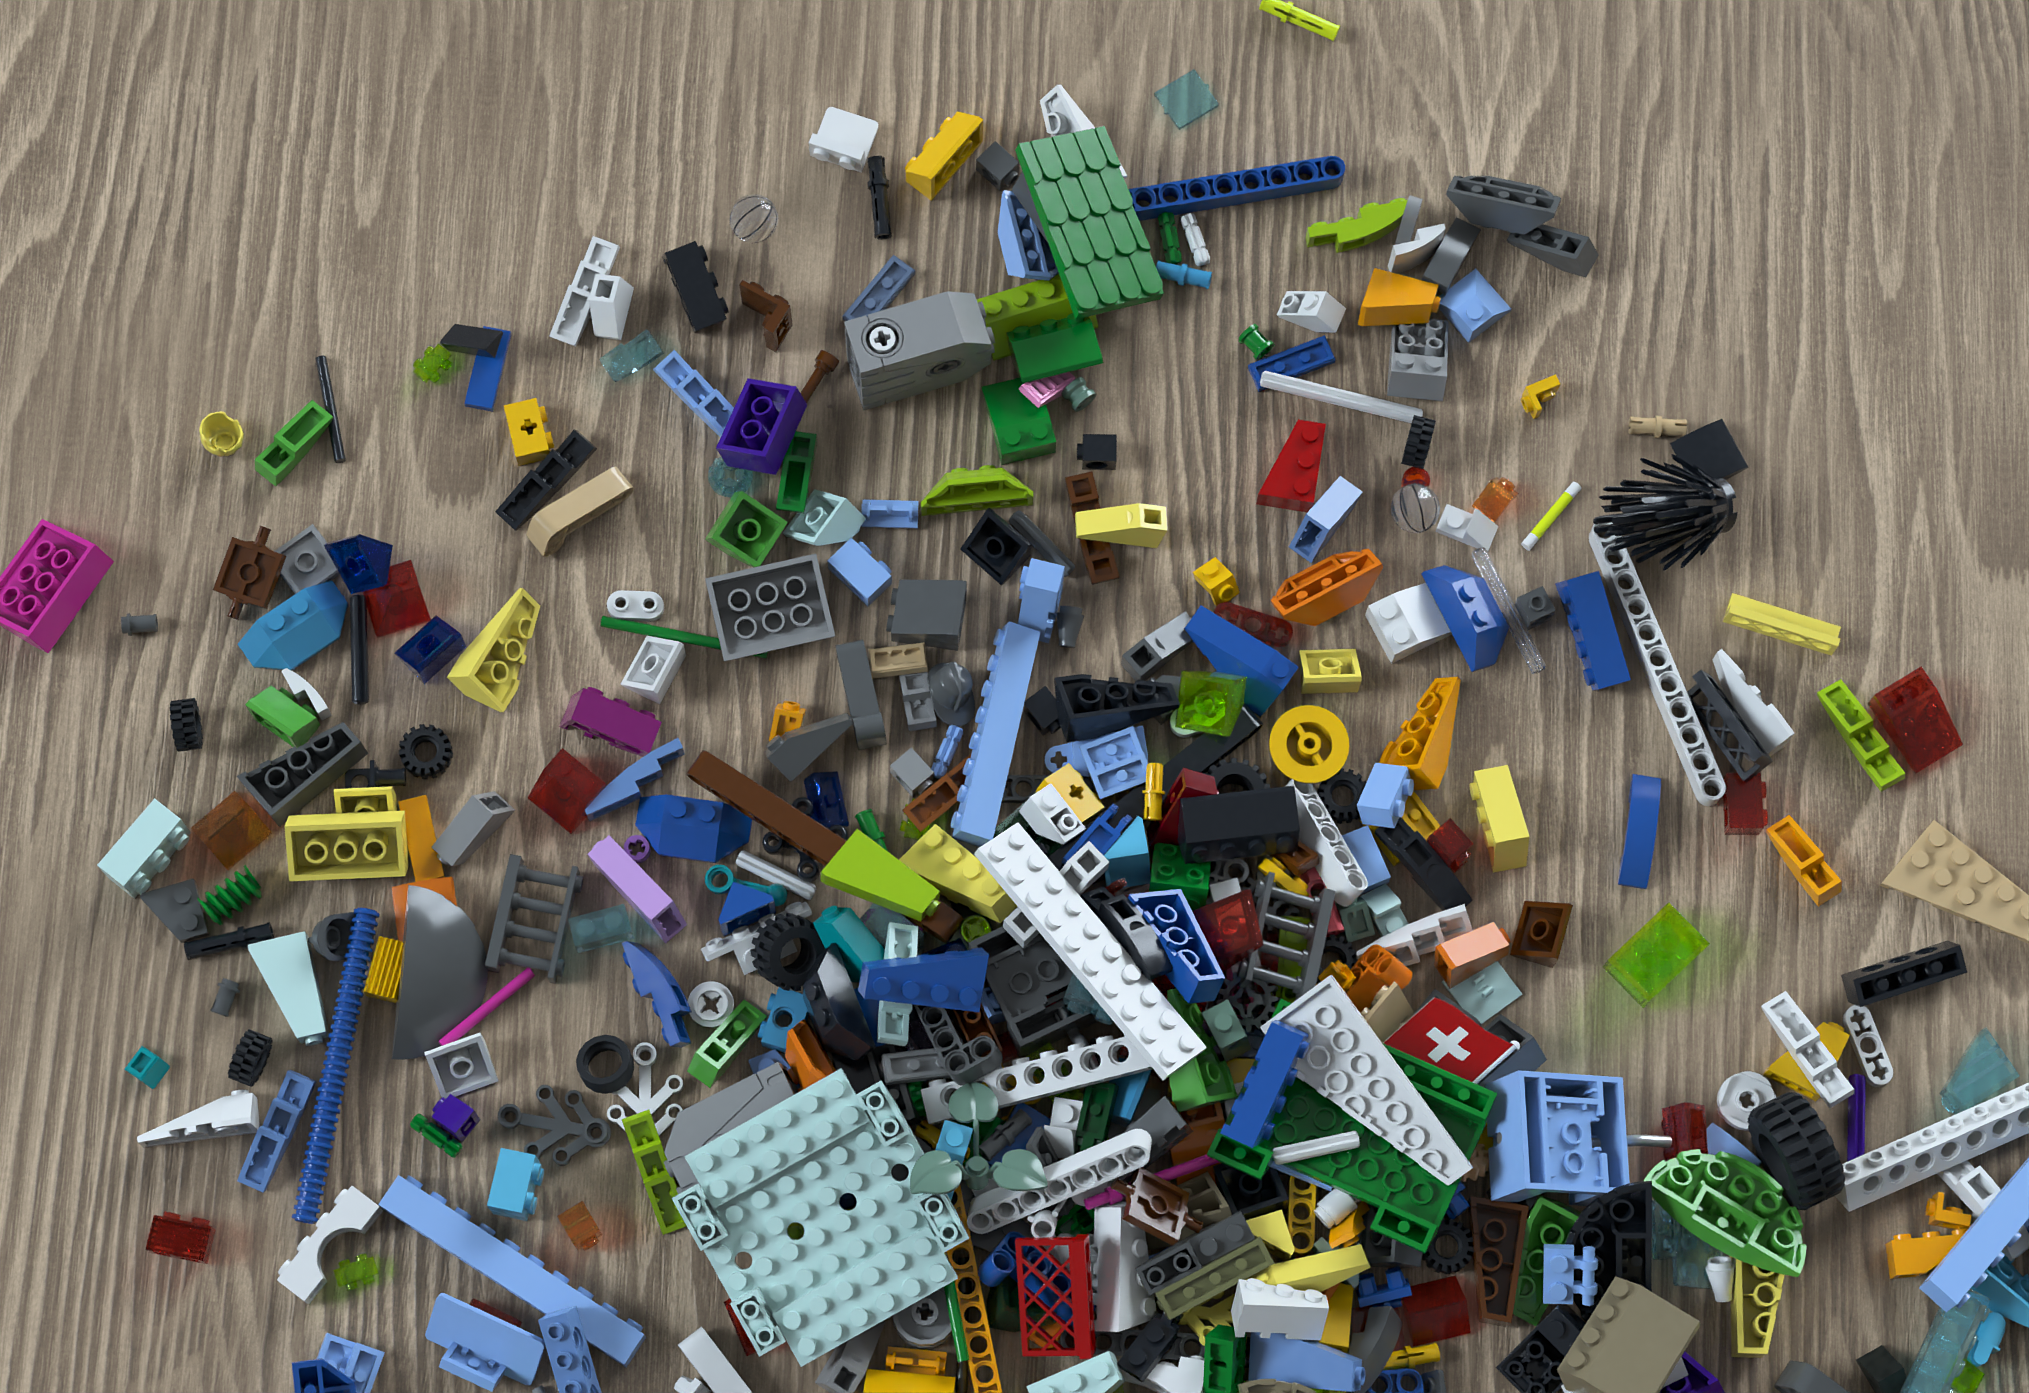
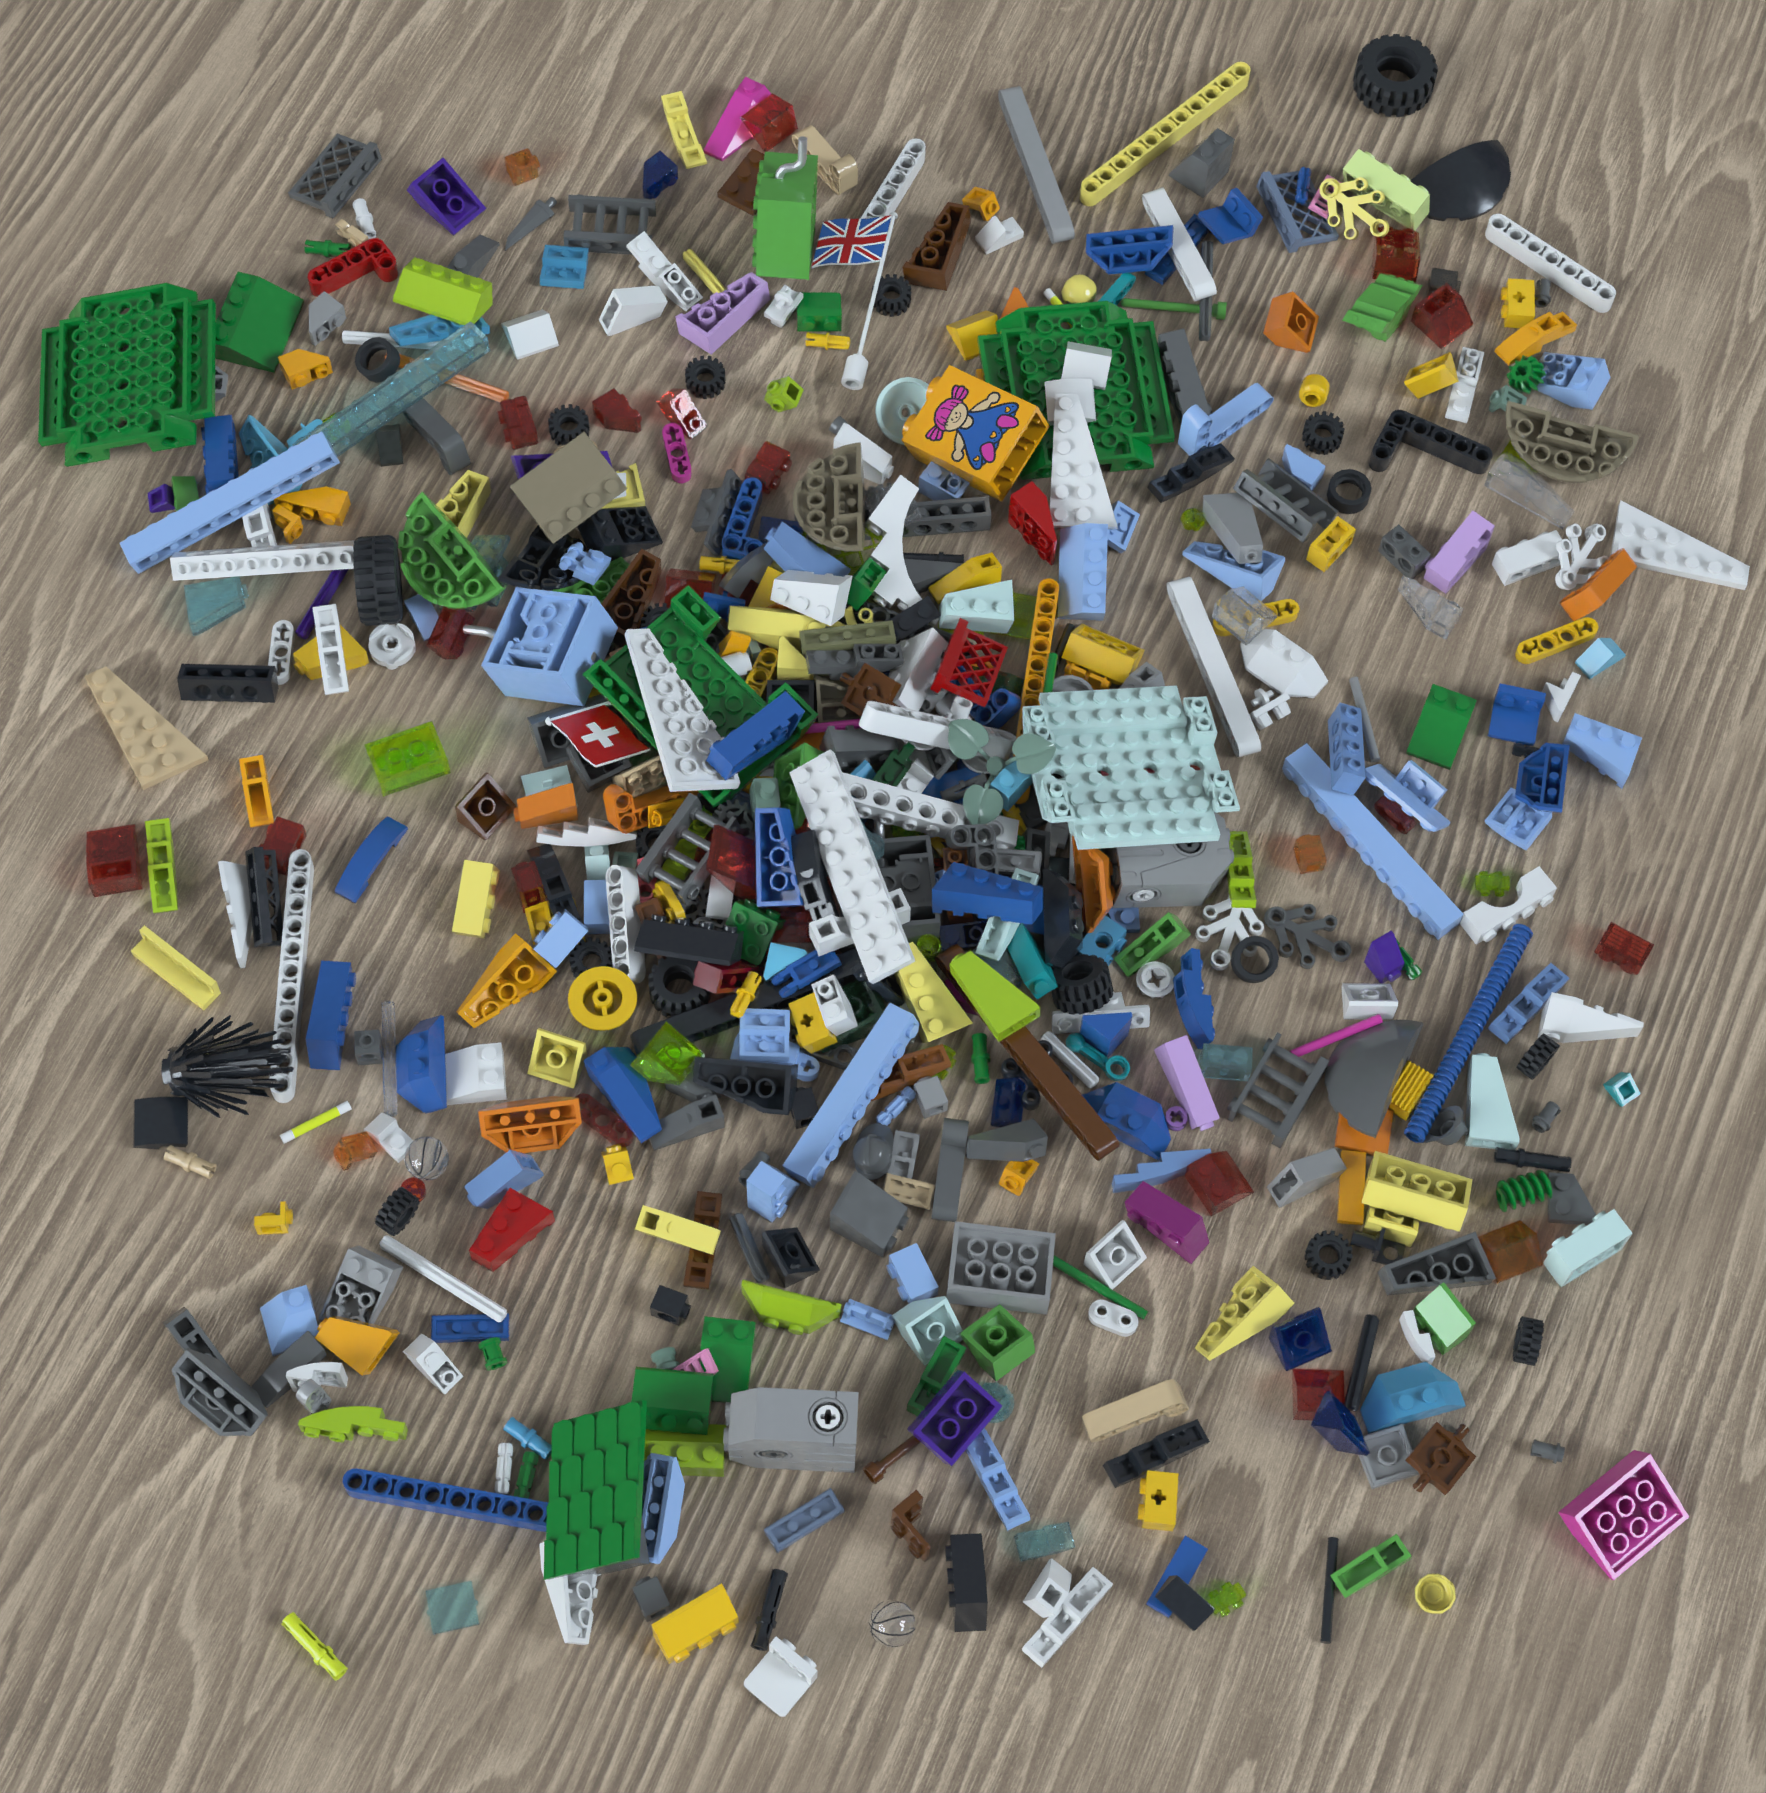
camera: 160 degrees left, 10 degrees down
(515, 1184) = (1352, 891): medium azure brick -> none
(1316, 1147) = (733, 694): white axle -> none
(1721, 1277) = (474, 531): white cone -> none

